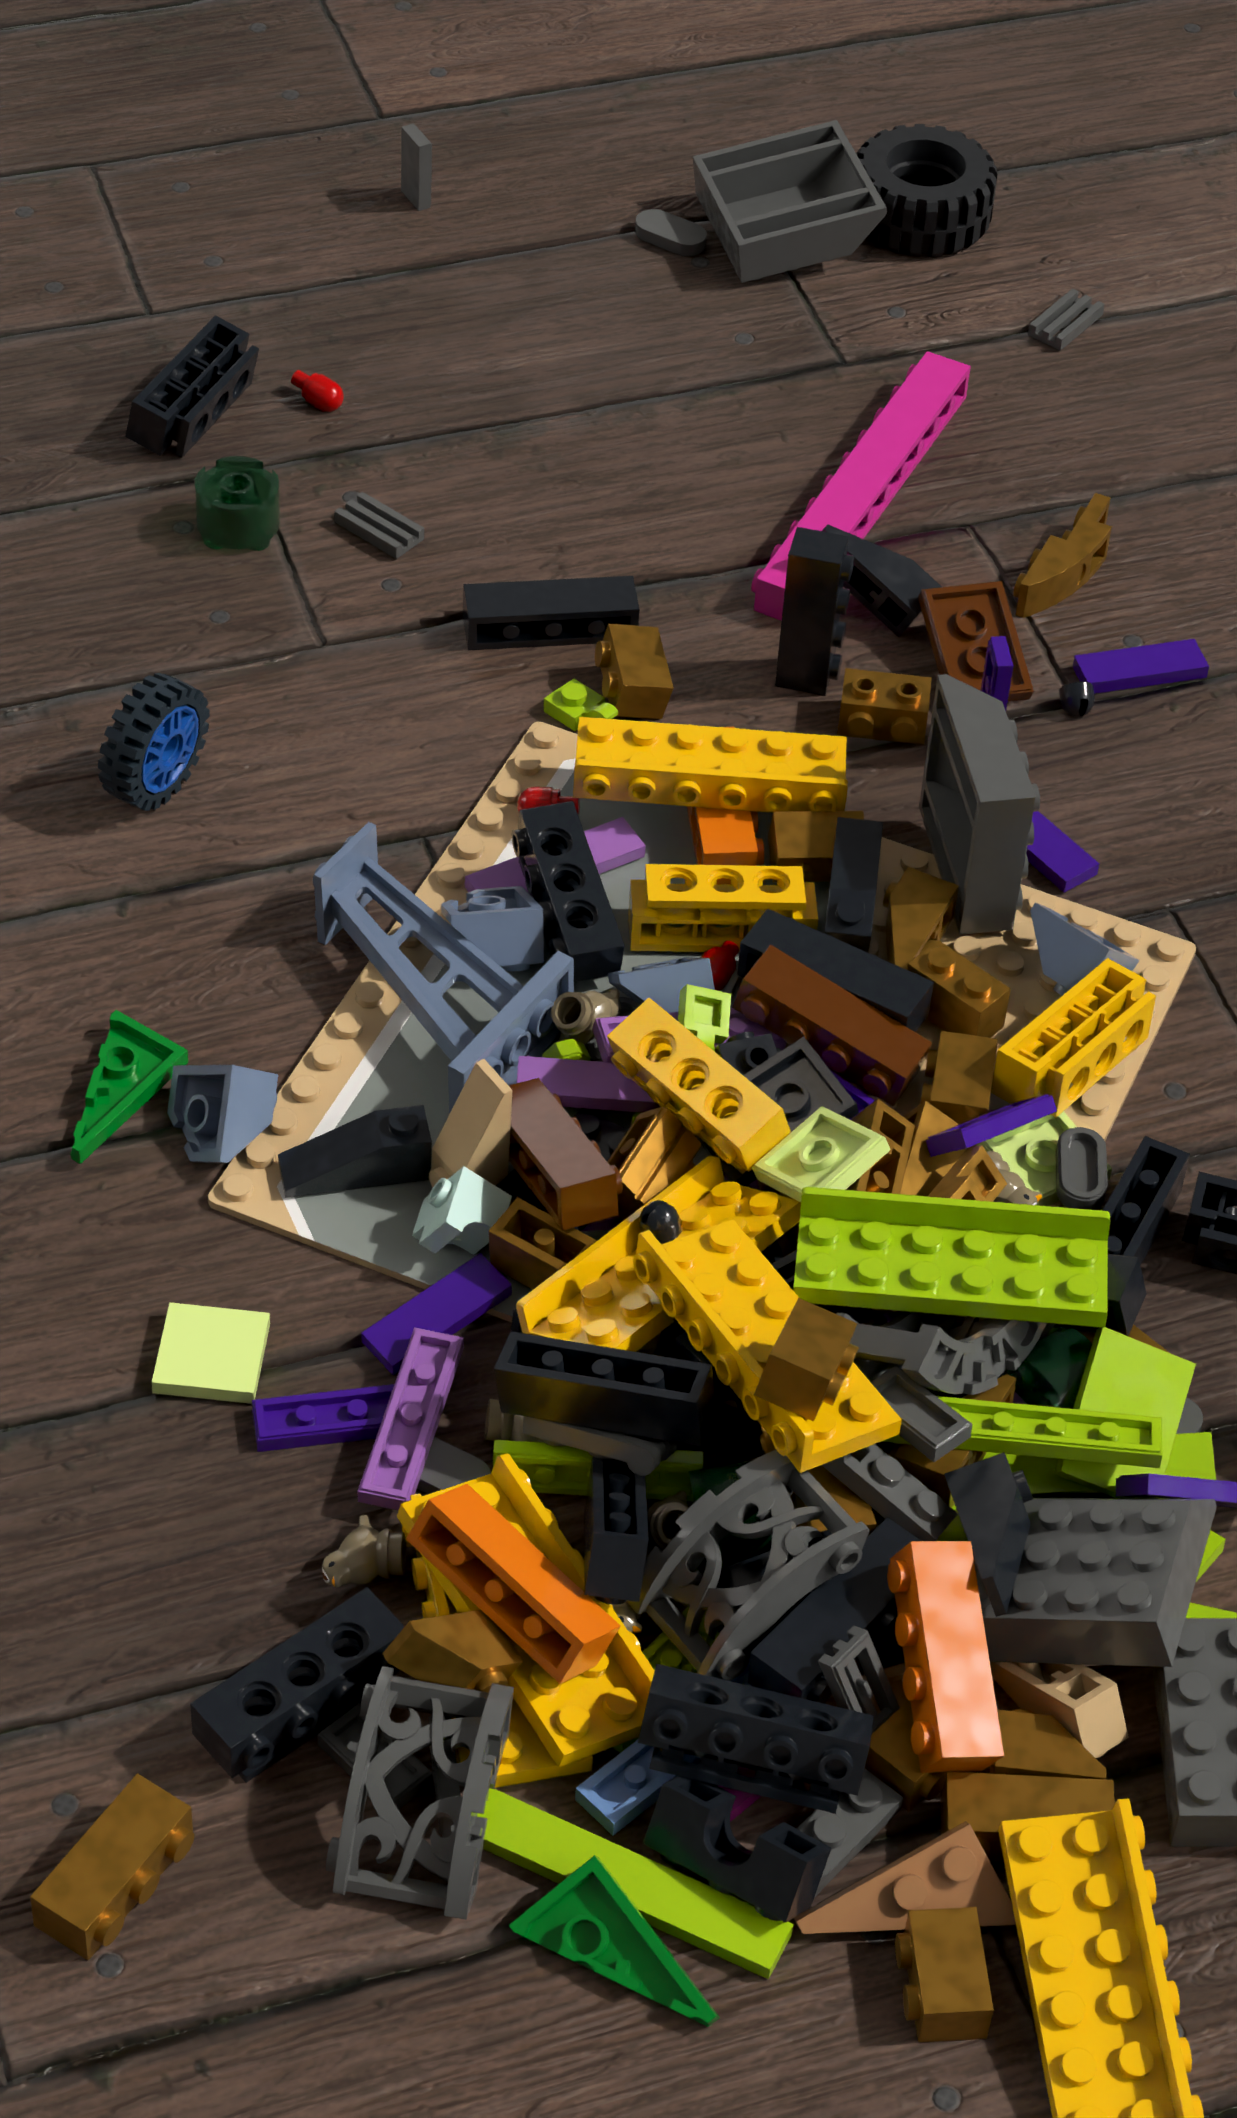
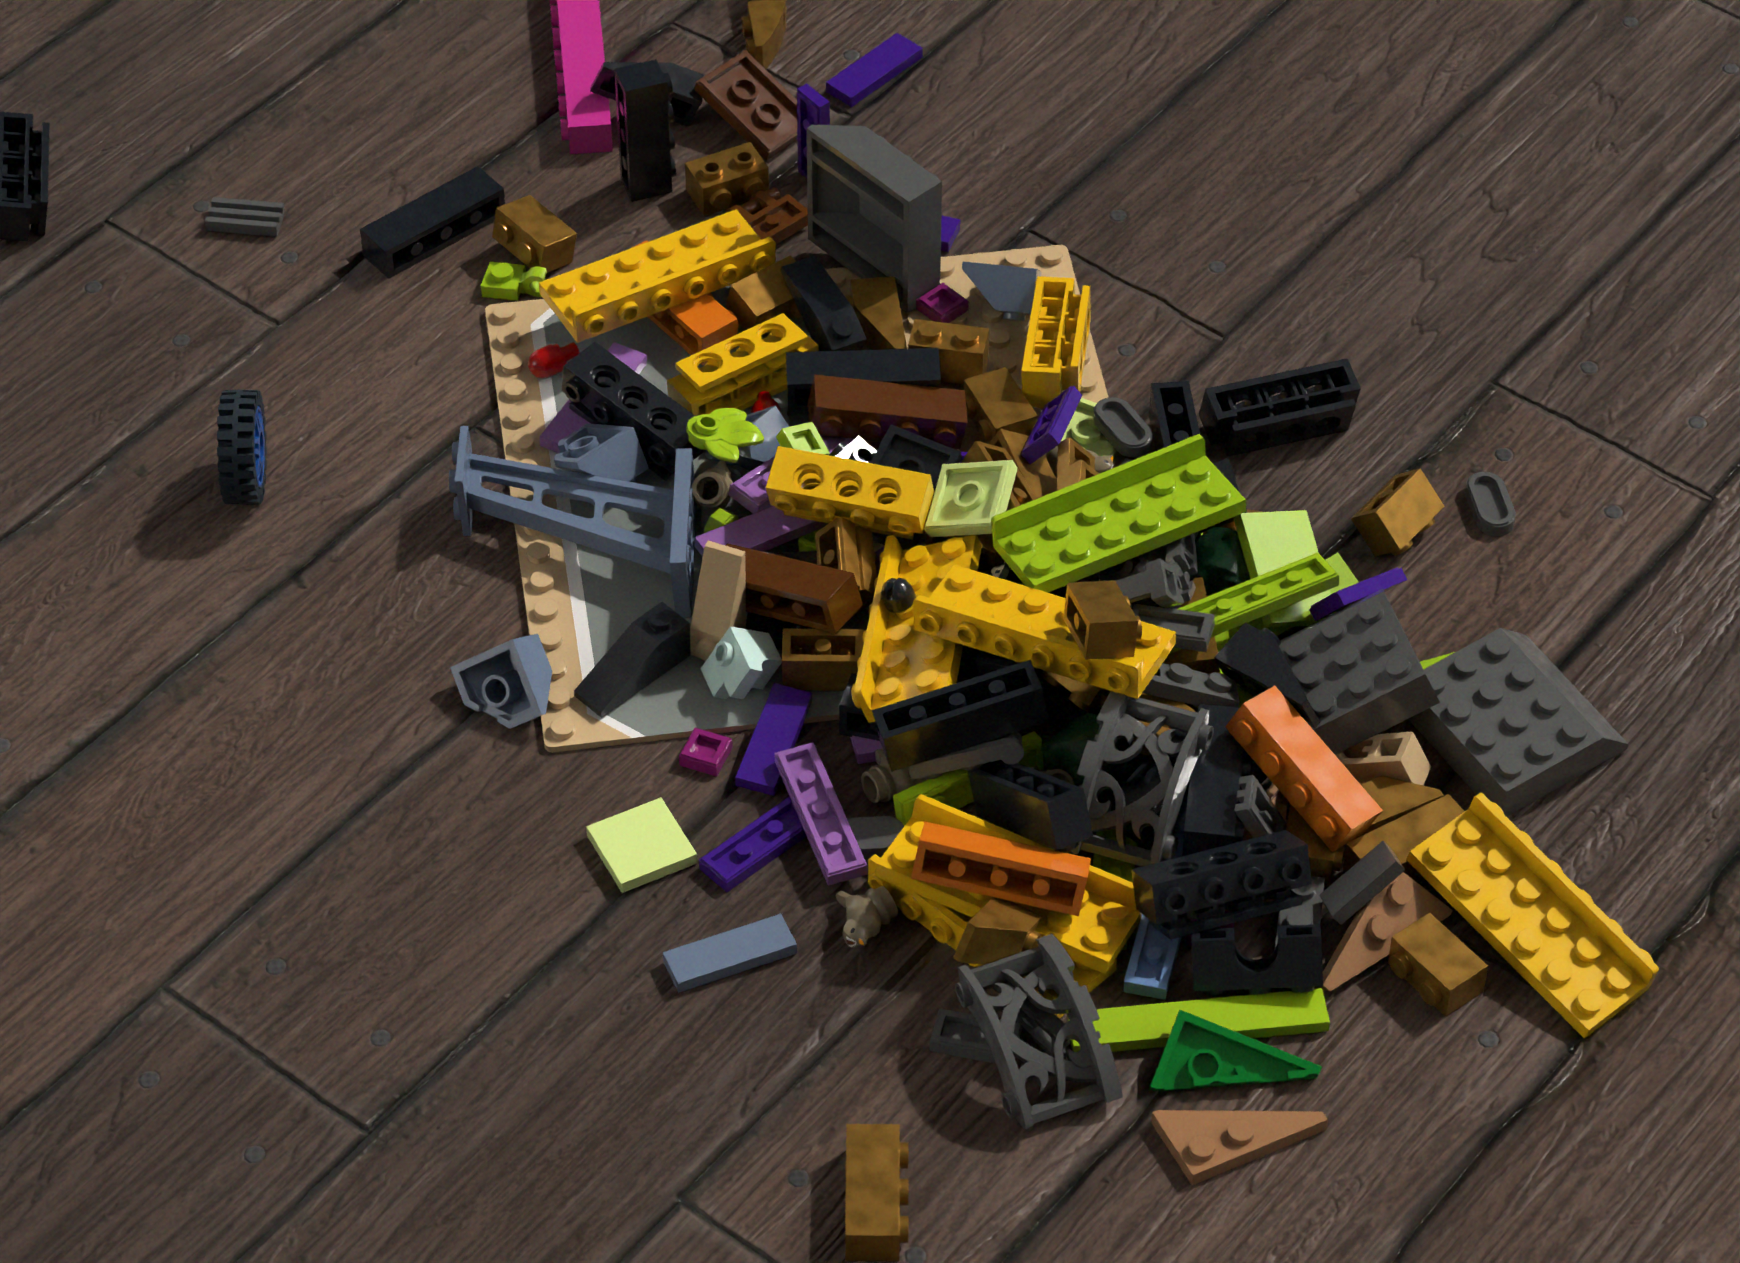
camera: 30 degrees left, 0 degrees up
(129, 1073) = (417, 691): green wing -> none
(200, 1517) = (729, 953): none -> sand blue tile
(237, 504) = (132, 248): clear green brick -> none
(295, 1687) = (902, 1013): black brick -> none
(319, 390) = (110, 136): red cylinder -> none
(360, 1290) = (705, 752): none -> magenta tile
(540, 2035) = (1218, 1141): none -> medium nougat wing
(628, 959) = (723, 433): none -> lime plate
(886, 766) = (773, 215): none -> reddish brown plate
(922, 1827) = (1362, 882): none -> dark grey tile
(1000, 943) = (942, 304): none -> magenta tile
(1077, 698) = (852, 112): black hinge -> none

